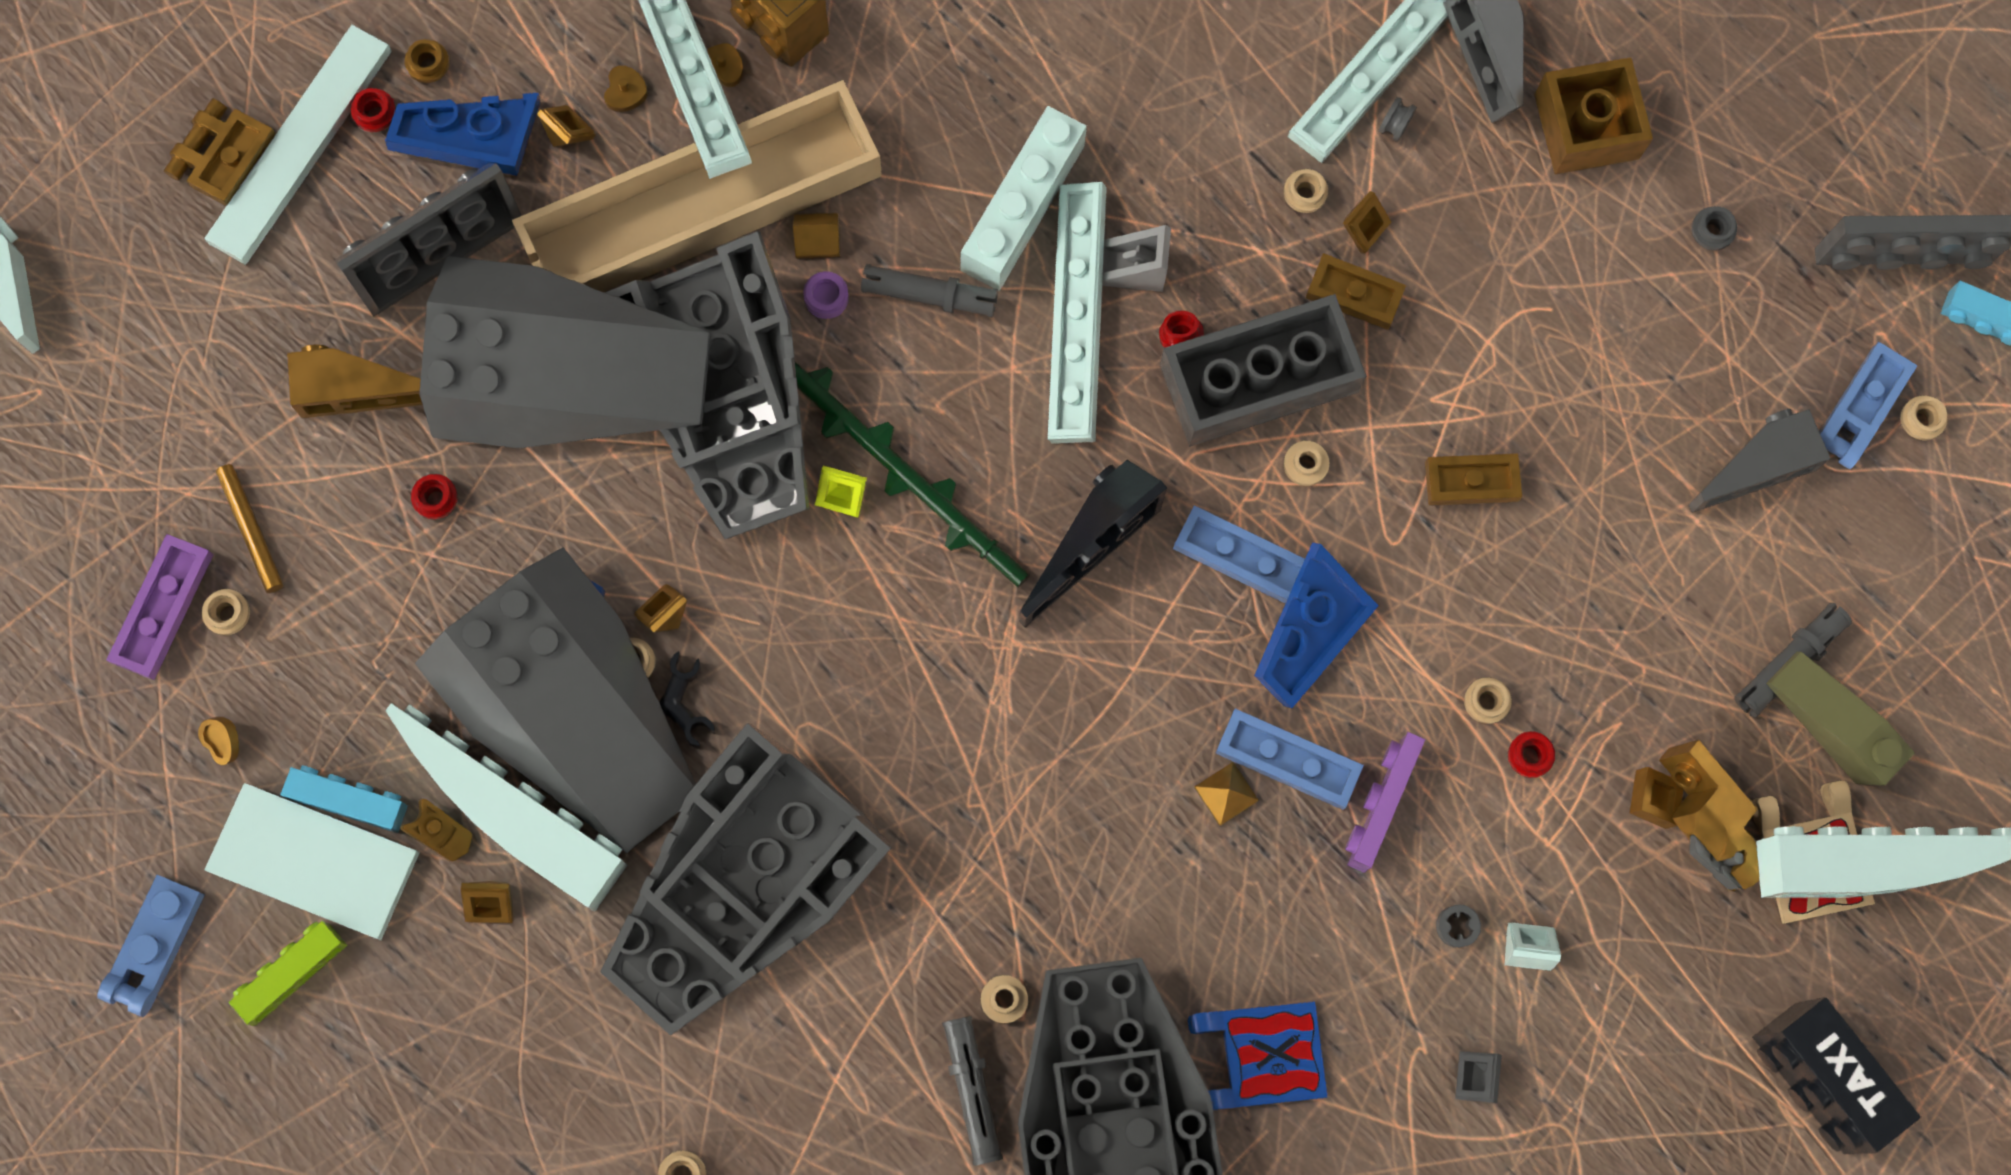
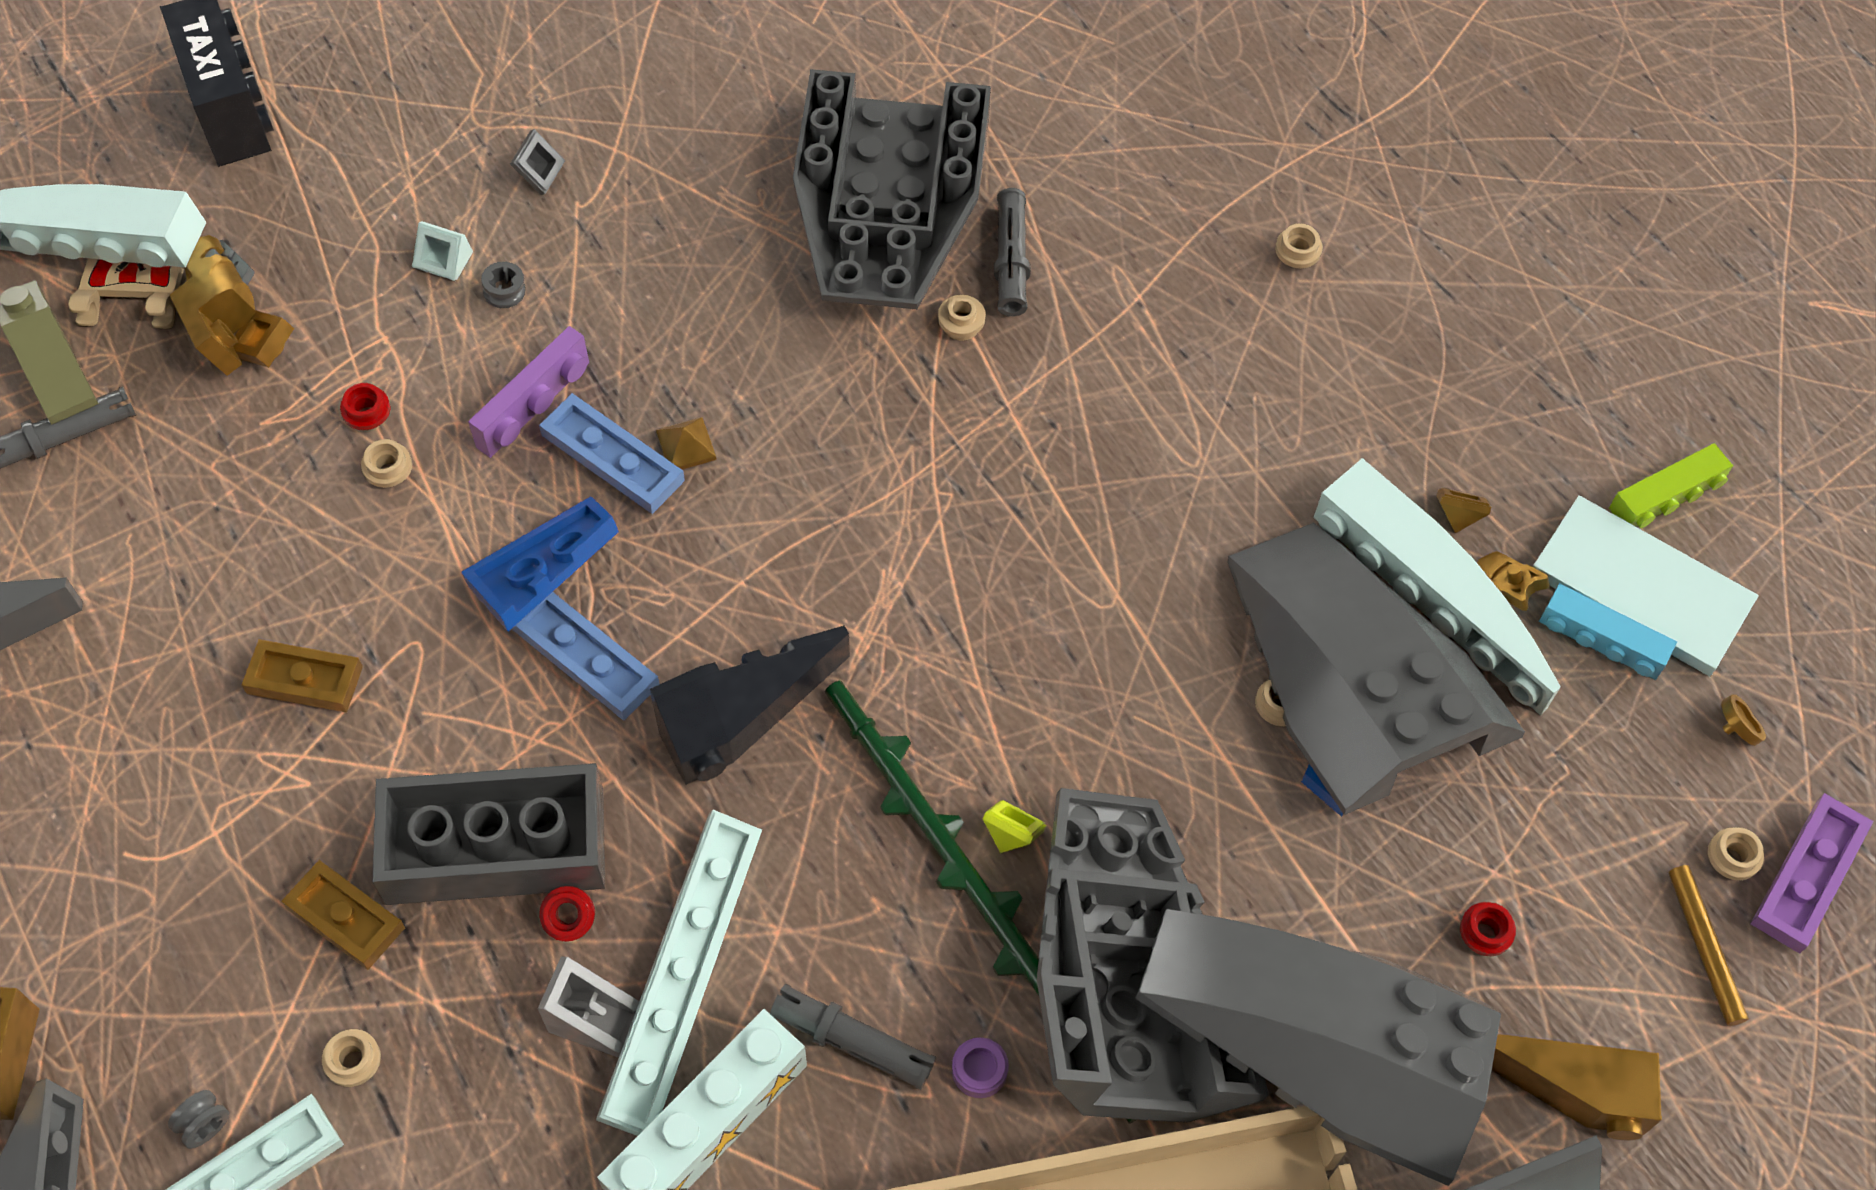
camera: 165 degrees left, 15 degrees down
(151, 945) = (1811, 546): medium blue plate -> none
(662, 610) = (1242, 743): pearl gold slope -> none
(672, 699) = (1244, 649): black arm -> none
(740, 880) = (1192, 457): dark grey wedge -> none
(816, 235) = (972, 1146): pearl gold slope -> none
(1269, 1054) = (729, 226): flag -> none
(1301, 475) = (480, 750): tan plate -> none
(1367, 222) = (297, 999): pearl gold slope -> none

